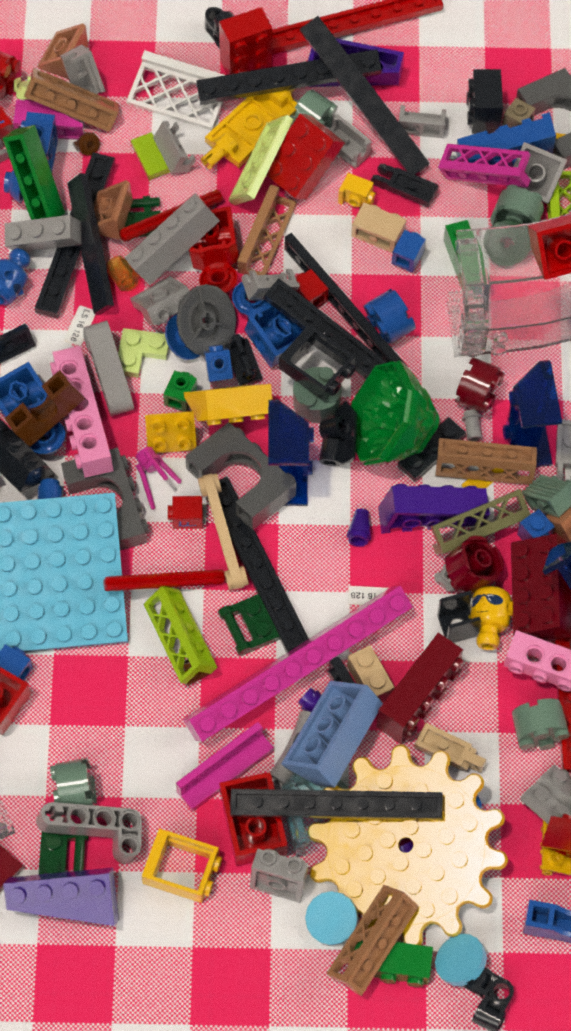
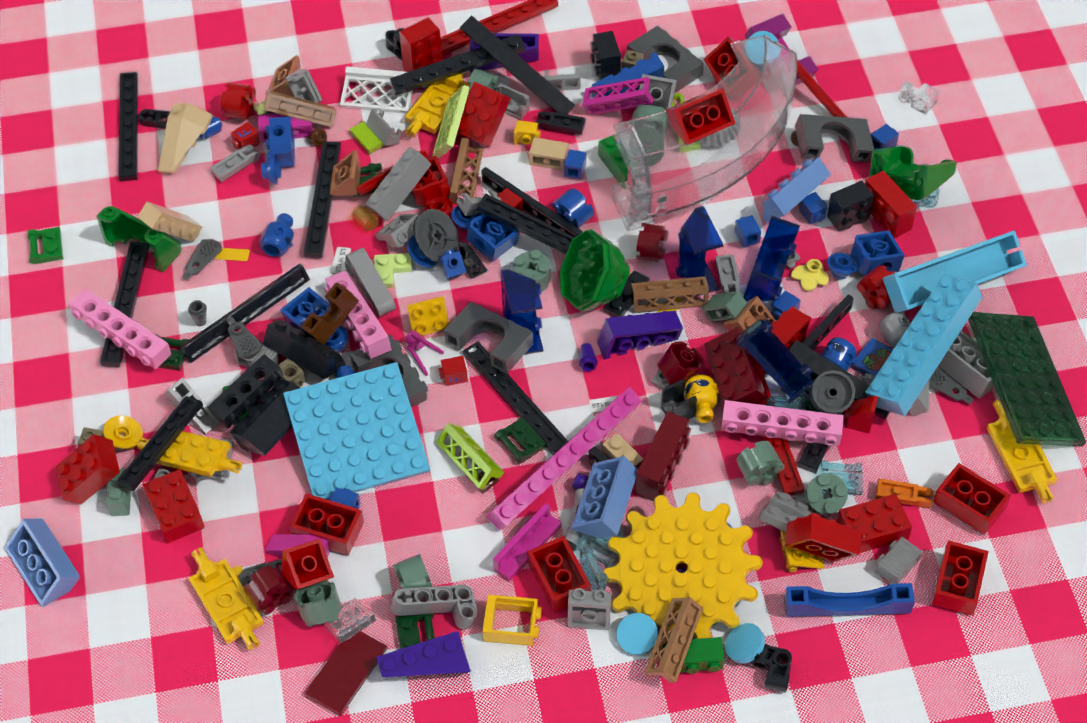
camera: 10 degrees left, 10 degrees down
(33, 173) = (284, 159): green brick -> none
(43, 233) = (300, 199): light grey brick -> none
(91, 245) = (336, 201): black tile -> none
(156, 580) = (443, 420): red axle -> none
(174, 392) = (428, 287): green brick -> none
(230, 403) = (469, 286): yellow slope -> none
(235, 575) = (501, 407): tan piece -> none
(309, 337) = (522, 229): black window -> none
(336, 804) = (621, 546): black tile -> none
(339, 437) = (556, 298): black panel -> none
(460, 752) = (708, 498): tan hinge -> none
(472, 424) = (652, 270): light grey pin -> none
(488, 527) = (685, 336): olive fence -> none
(535, 526) = (717, 328): blue brick -> none

